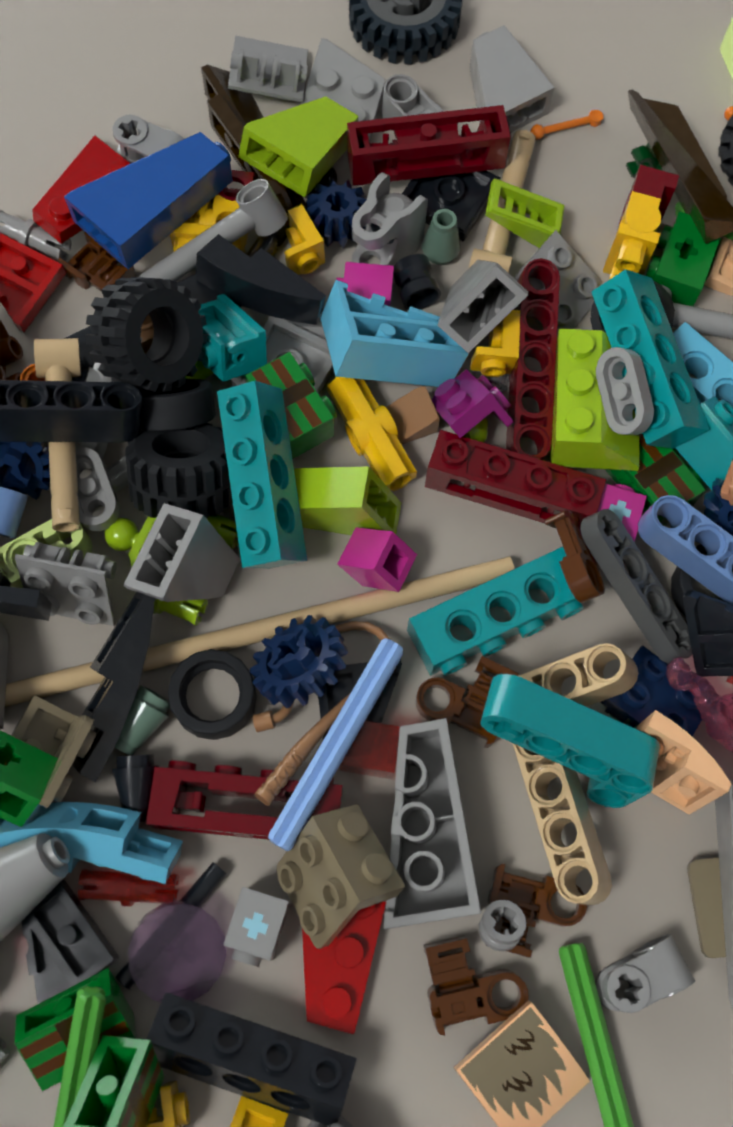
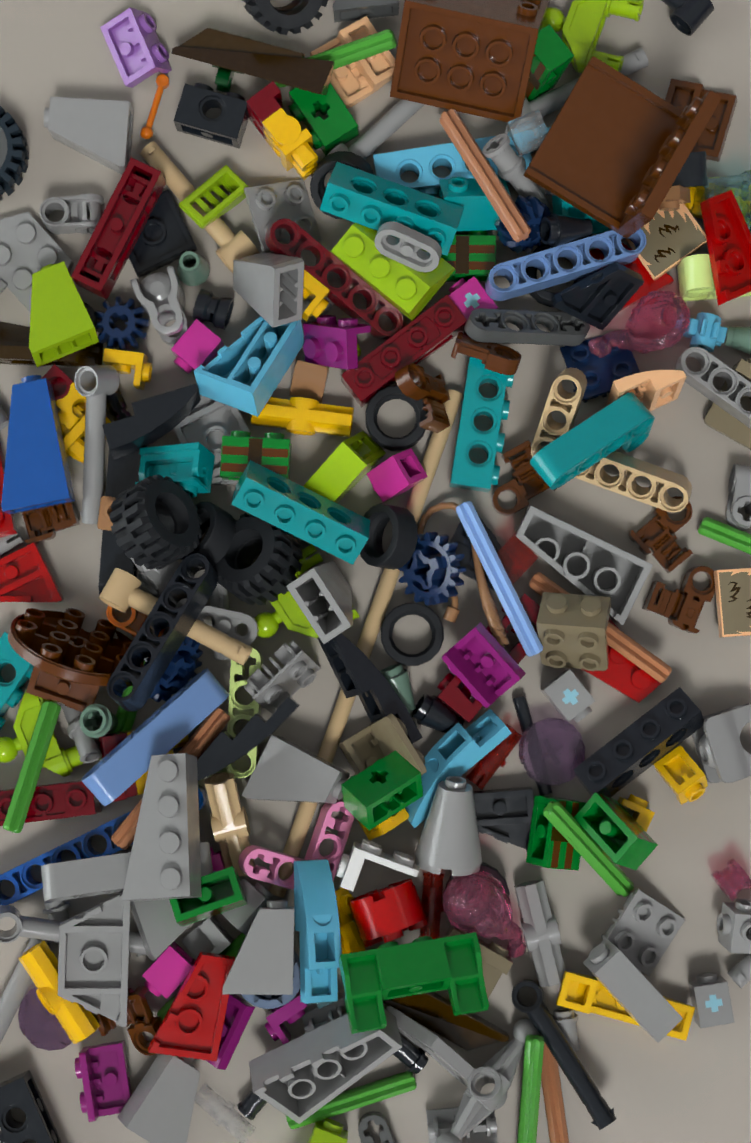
camera: 50 degrees left, 15 degrees up
(219, 789) = (483, 665): none -> magenta bracket
(302, 592) = (403, 536): none -> black tyre
(362, 936) = (615, 638): none -> nougat axle
(448, 494) = (379, 436): none -> black tyre
(492, 537) = (418, 385): none -> reddish brown piece
(517, 926) = (659, 564): light grey bush -> none
(598, 168) = (226, 128): none -> black brick
(608, 73) = (135, 46): none -> medium lavender bracket

